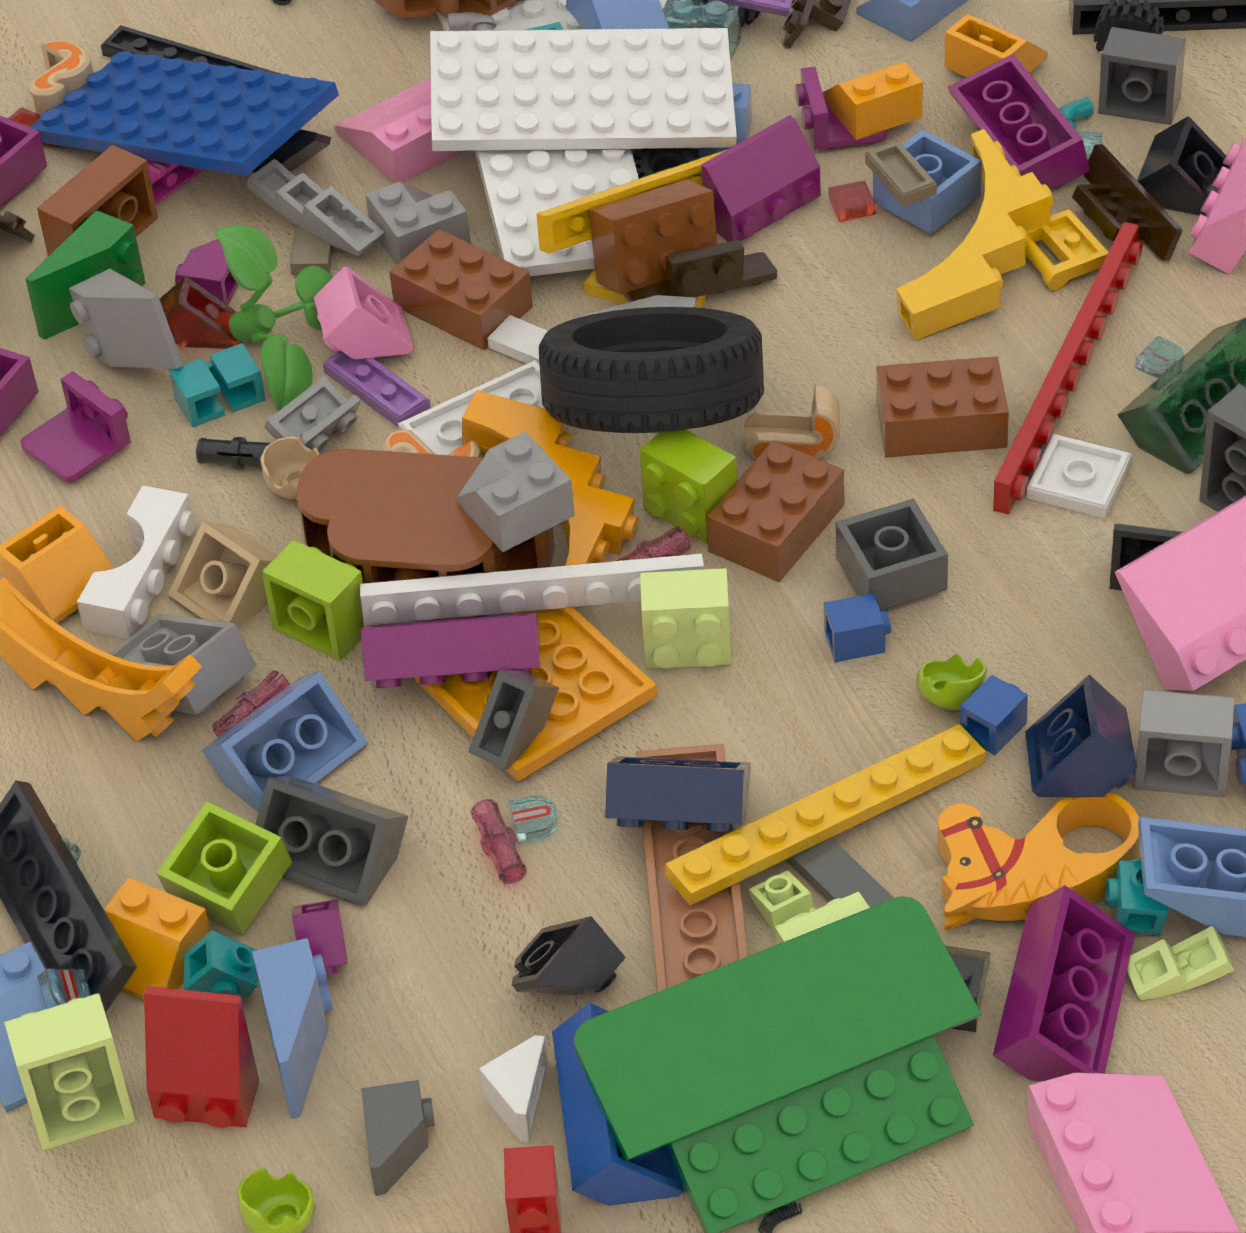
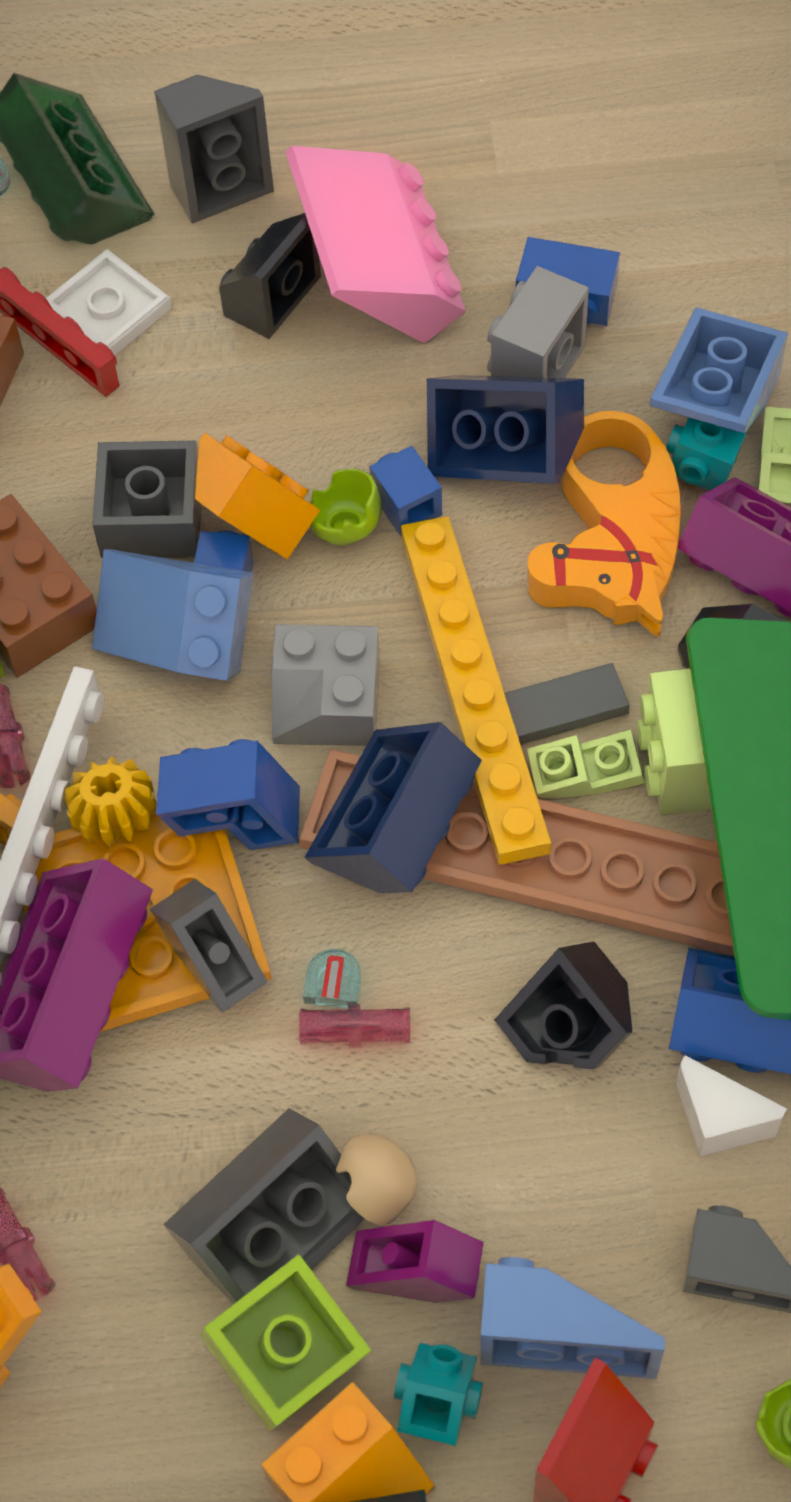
camera: 70 degrees left, 15 degrees up
(293, 733) = (98, 1221): medium blue slope -> none
(372, 883) = (380, 1176): none -> tan hair
(606, 622) = (110, 801): none -> yellow gear
(646, 690) = (232, 790): none -> blue brick
(685, 618) = (145, 711): yellowish green brick -> none
(783, 724) = (325, 684): none -> light grey slope
(792, 611) = (172, 613): none -> medium blue slope
(920, 609) = (252, 494): none -> light orange slope

